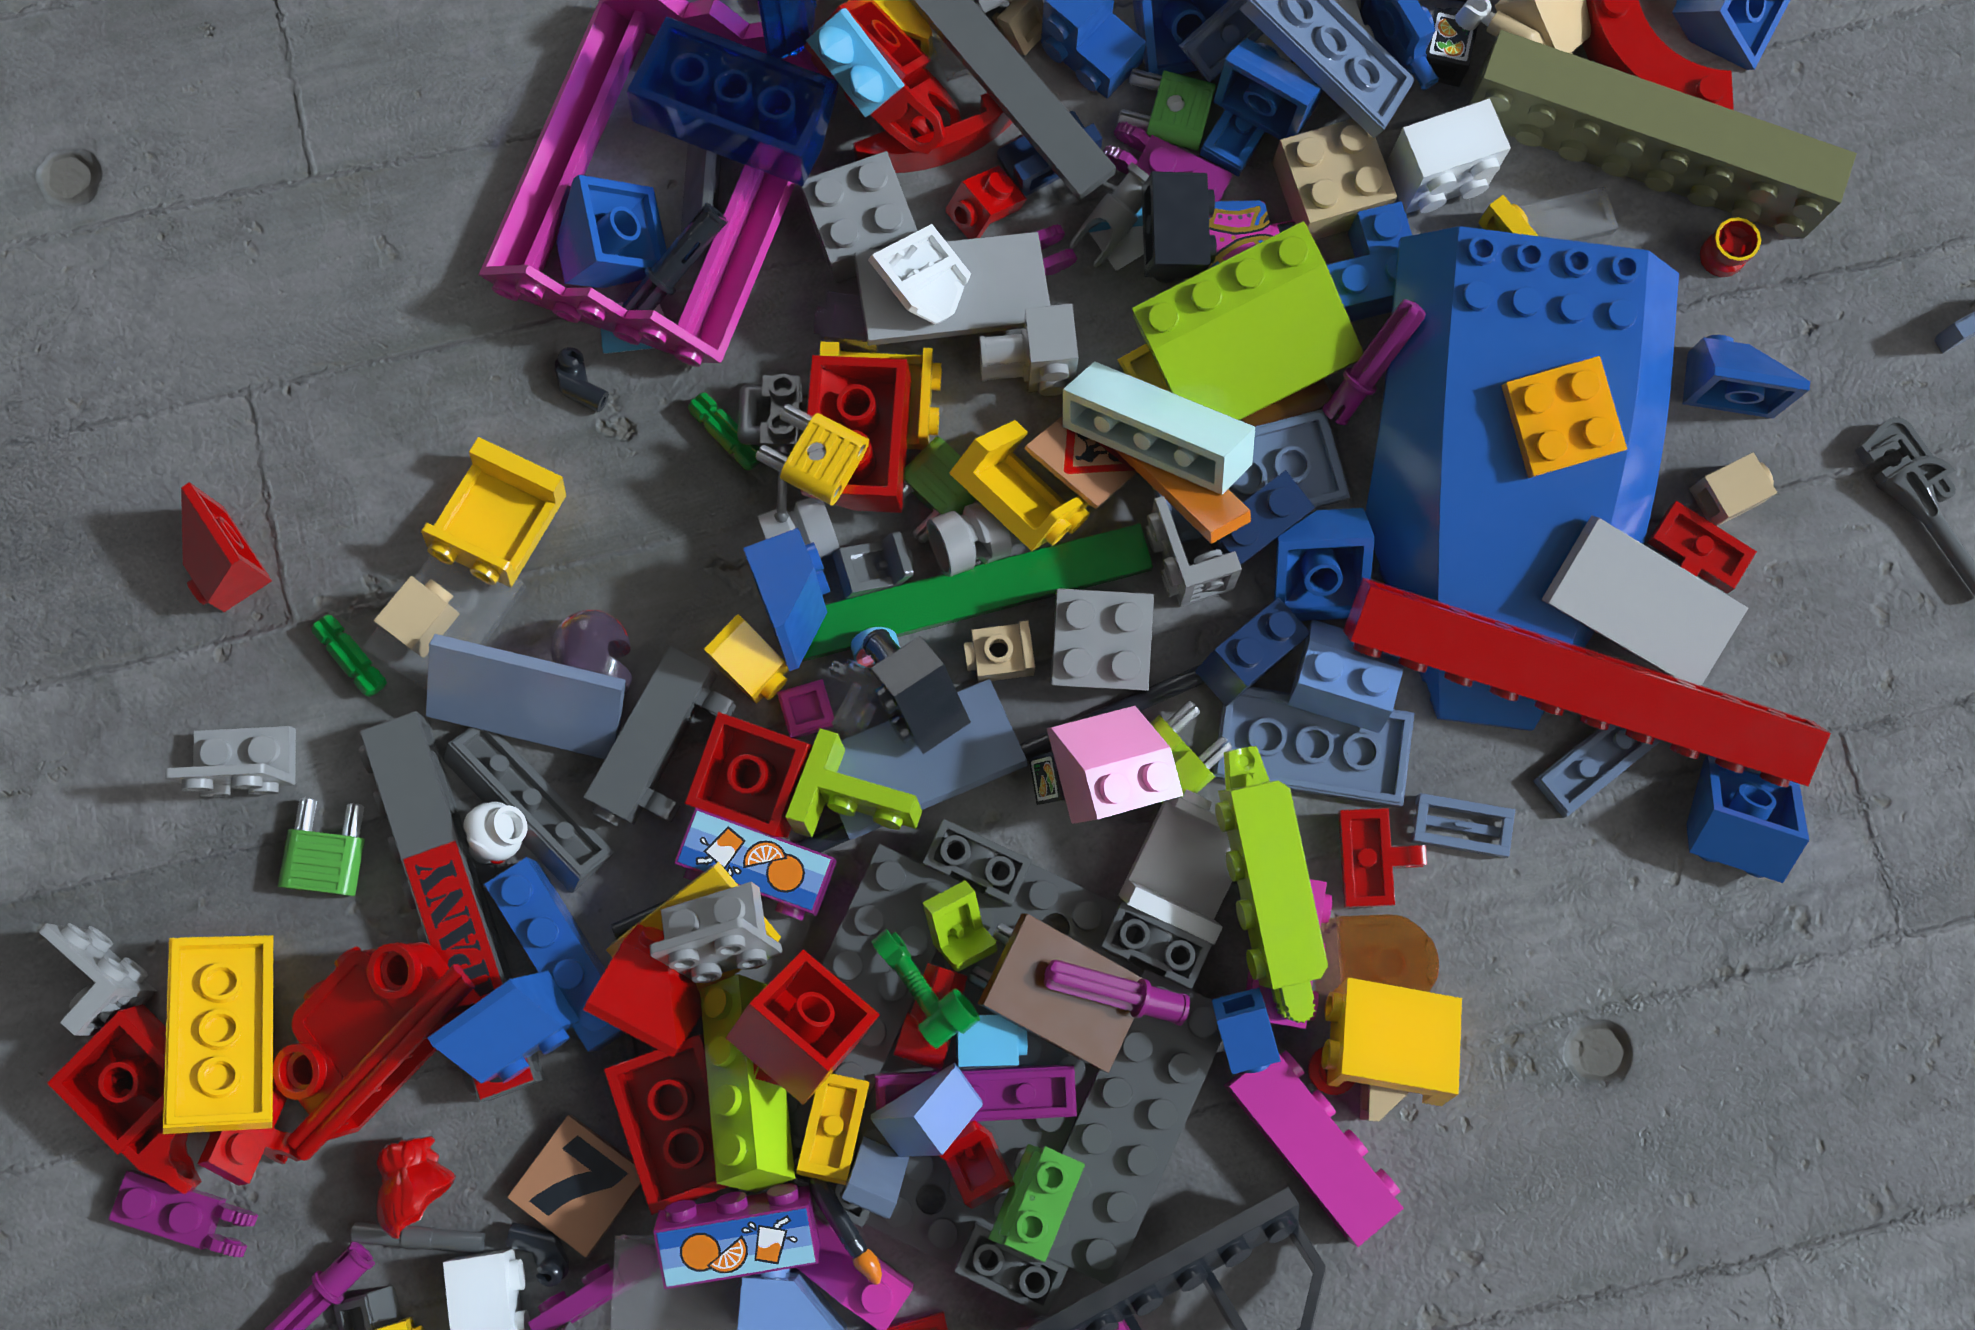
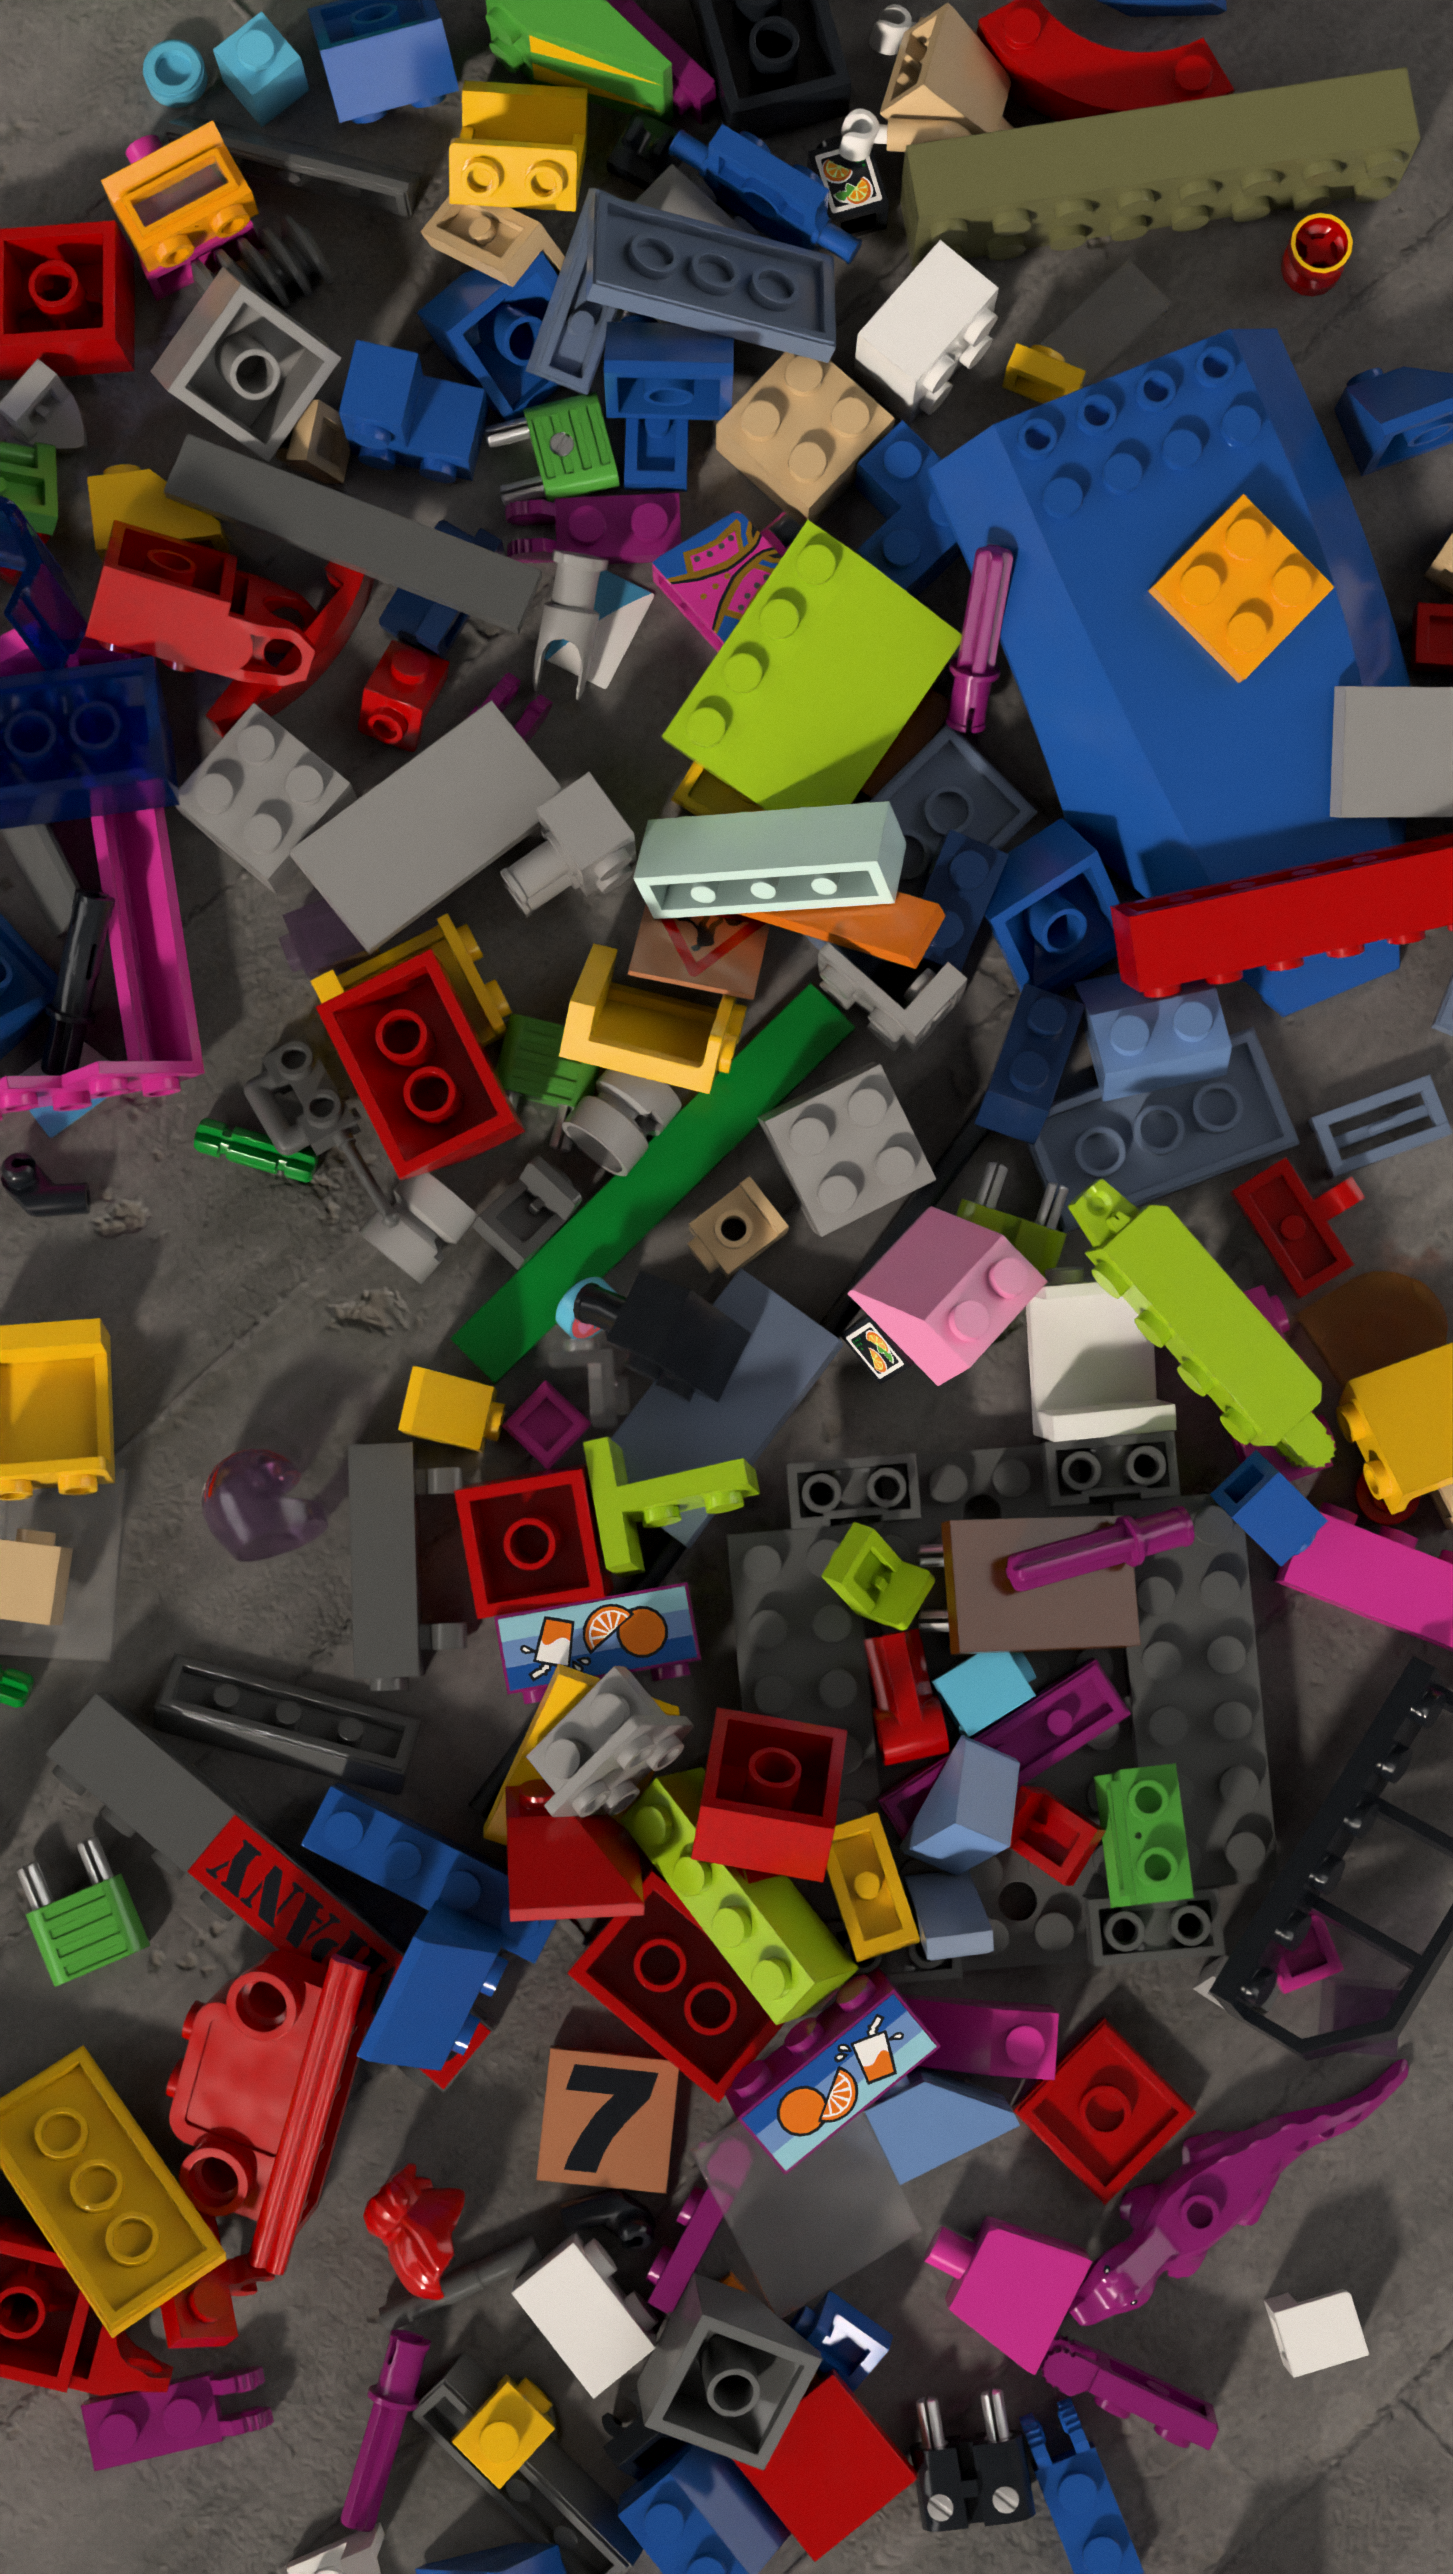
camera: 30 degrees left, 5 degrees up
(494, 832) = (273, 1777): white animal -> none
(523, 696) = (213, 1603): sand blue tile -> none
(791, 590) = (451, 1299): blue slope -> none
(821, 458) = (402, 1125): yellow piece -> none
(855, 62) = (161, 622): medium azure tile -> none
(863, 1258) = (985, 2011): black piece -> none
(923, 274) = (390, 833): white slope -> none
(944, 1016) = (921, 1691): green brick -> none
(1177, 225) = (656, 601): black brick -> none

